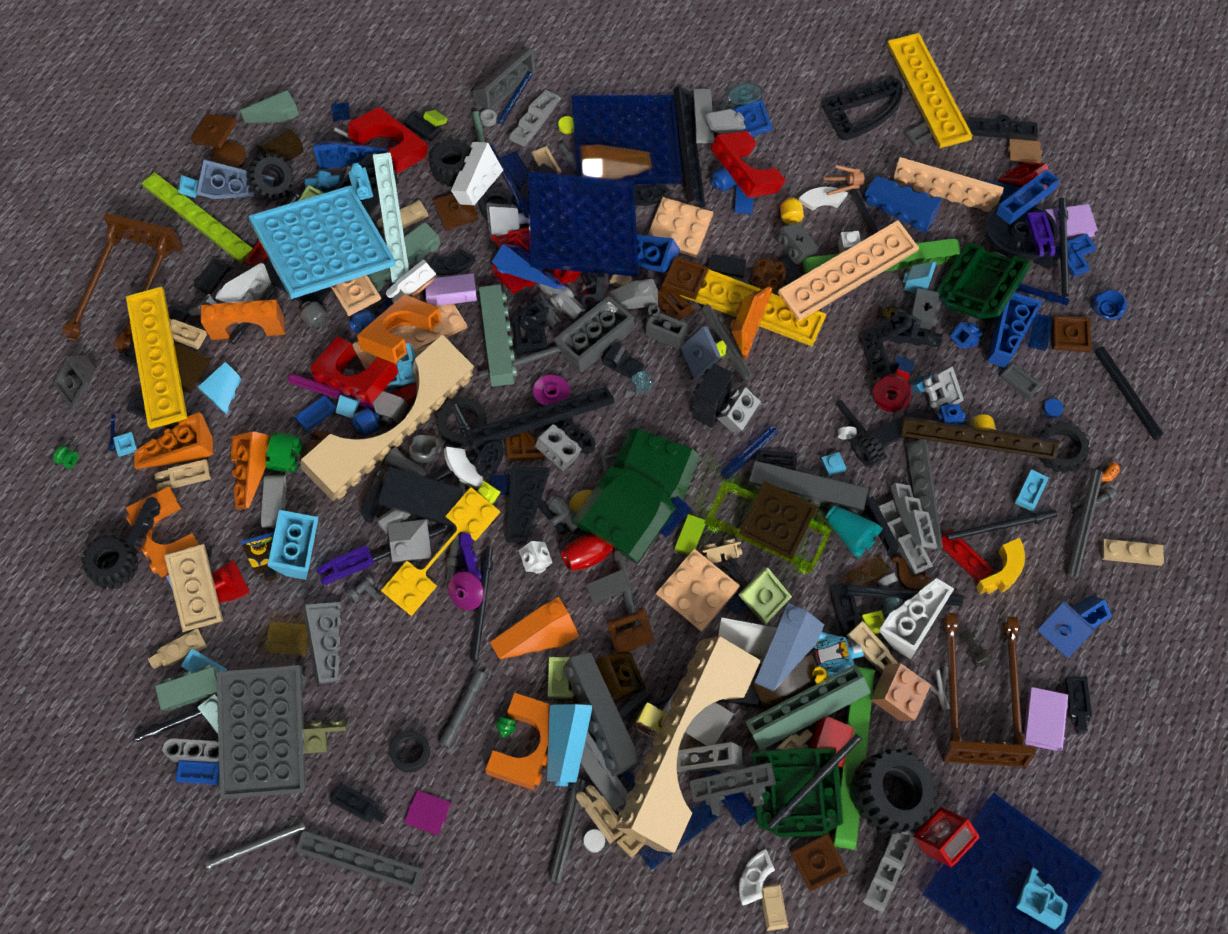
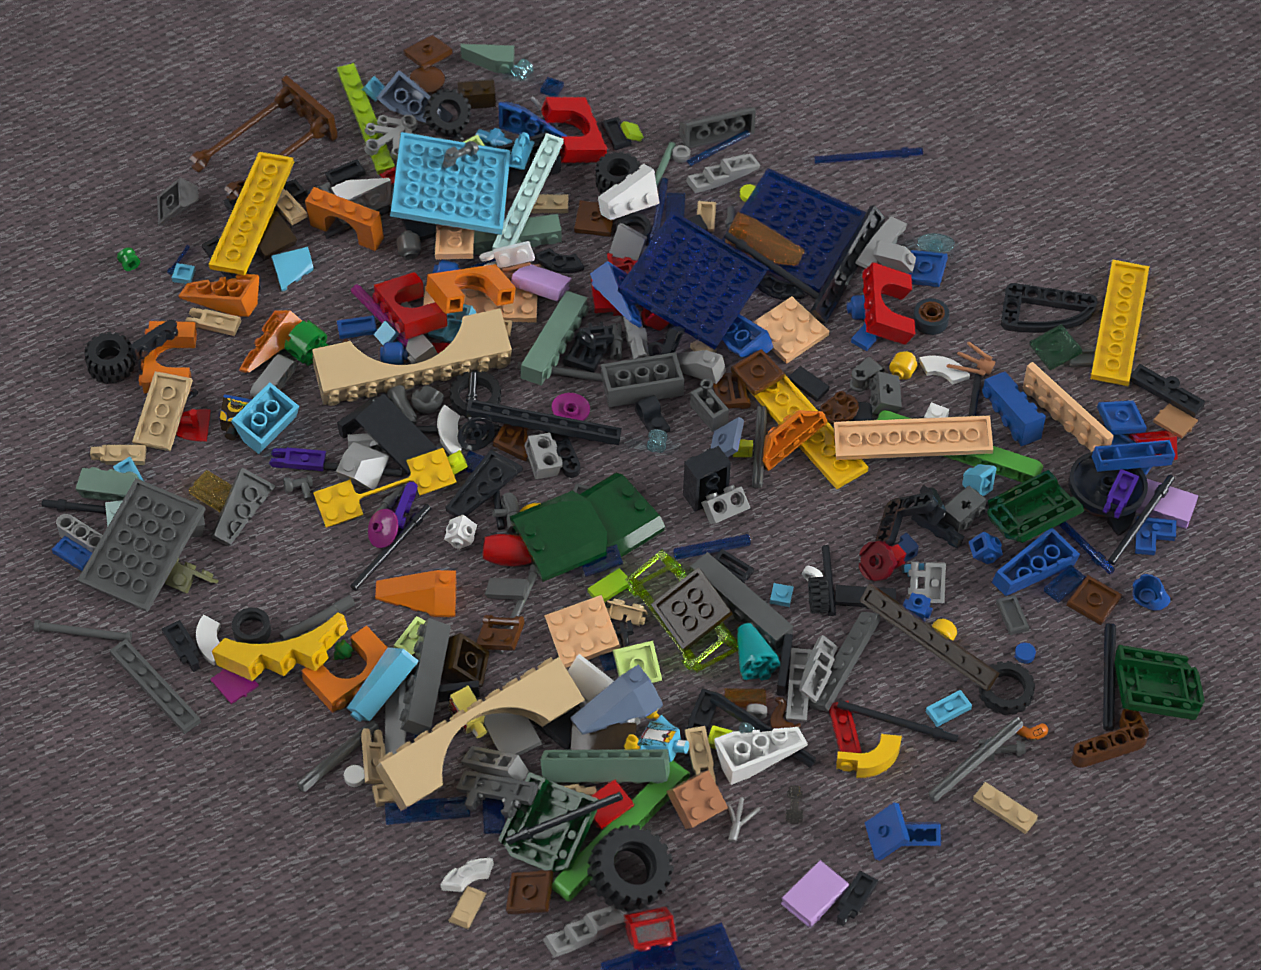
camera: 30 degrees right, 10 degrees down
(237, 204) = (407, 123): none -> light grey plant
(306, 108) = (522, 69): none -> clear light blue wheel
(319, 200) = (452, 154): none -> dark grey hinge
(377, 786) = (207, 638): none -> white tile
(459, 769) = (280, 657): none -> yellow arch
(601, 173) = (741, 244): none -> black bar
(665, 30) = (903, 152): none -> clear blue bar
(767, 235) = (863, 373): none -> dark grey piece
(785, 157) = (931, 316): none -> black wheel
(895, 135) = (1055, 347): none -> clear green tile
(980, 751) = (746, 890): reddish brown piece -> none
(986, 168) = (1121, 417): none -> blue plate
(1172, 451) = (1086, 752): none -> reddish brown beam
(1173, 379) = (1158, 682): none -> dark green wedge

